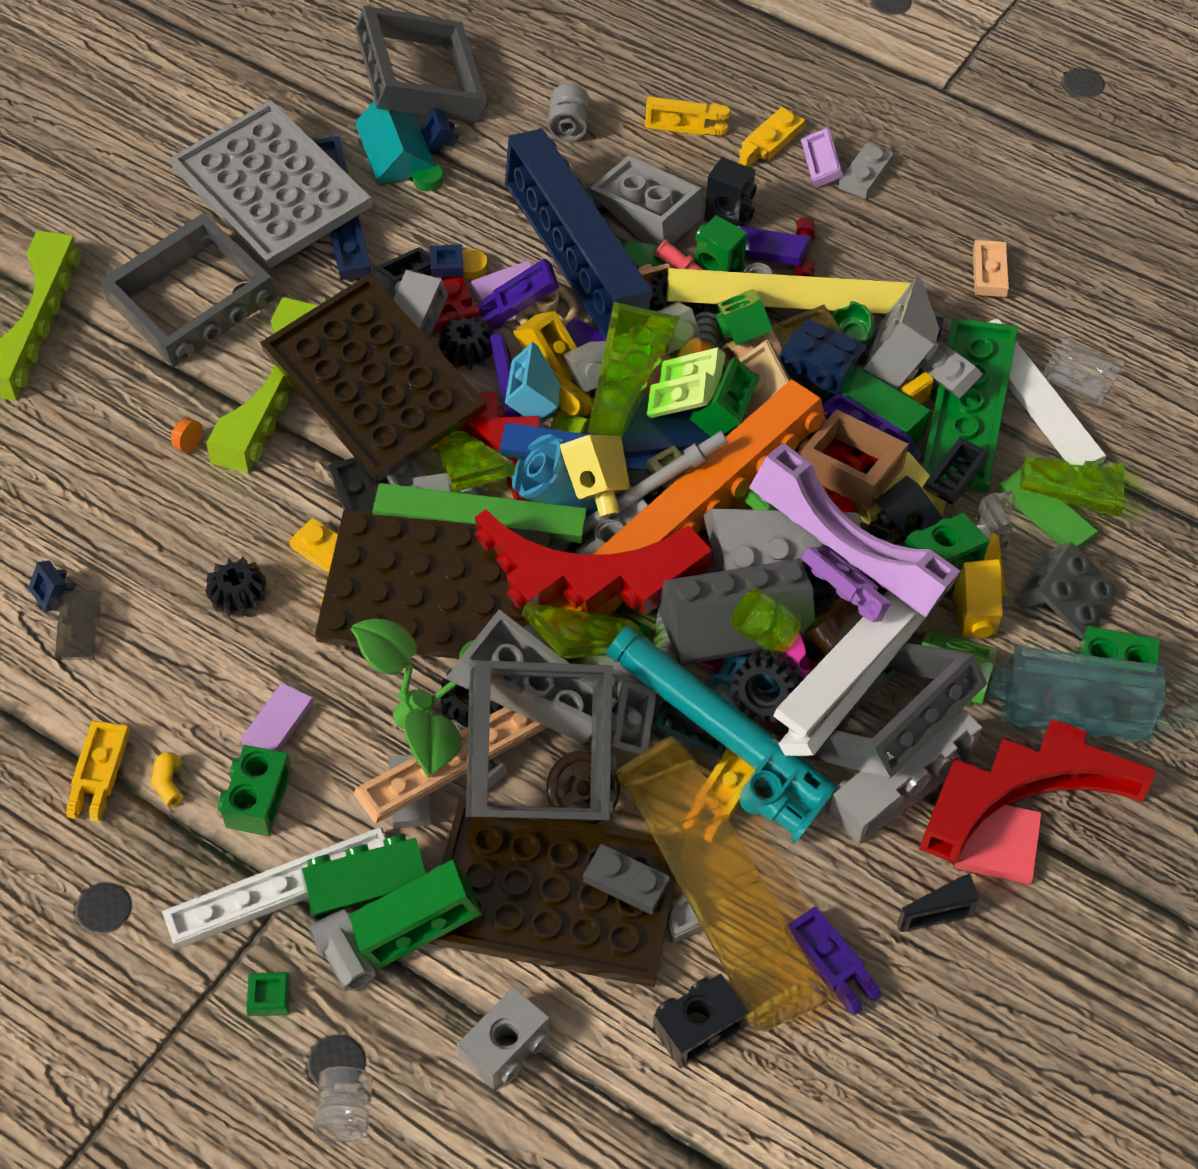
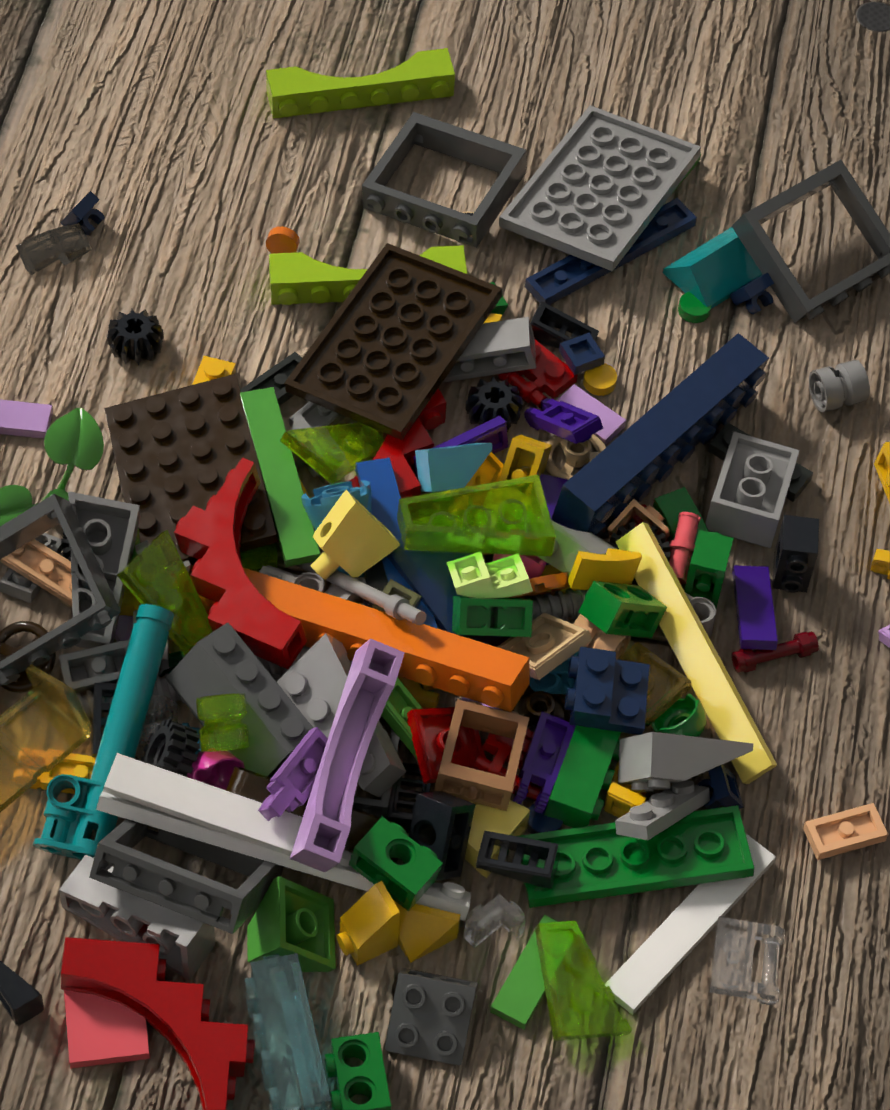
camera: 65 degrees right, 0 degrees up
(703, 312) = (613, 567): none -> yellow slope

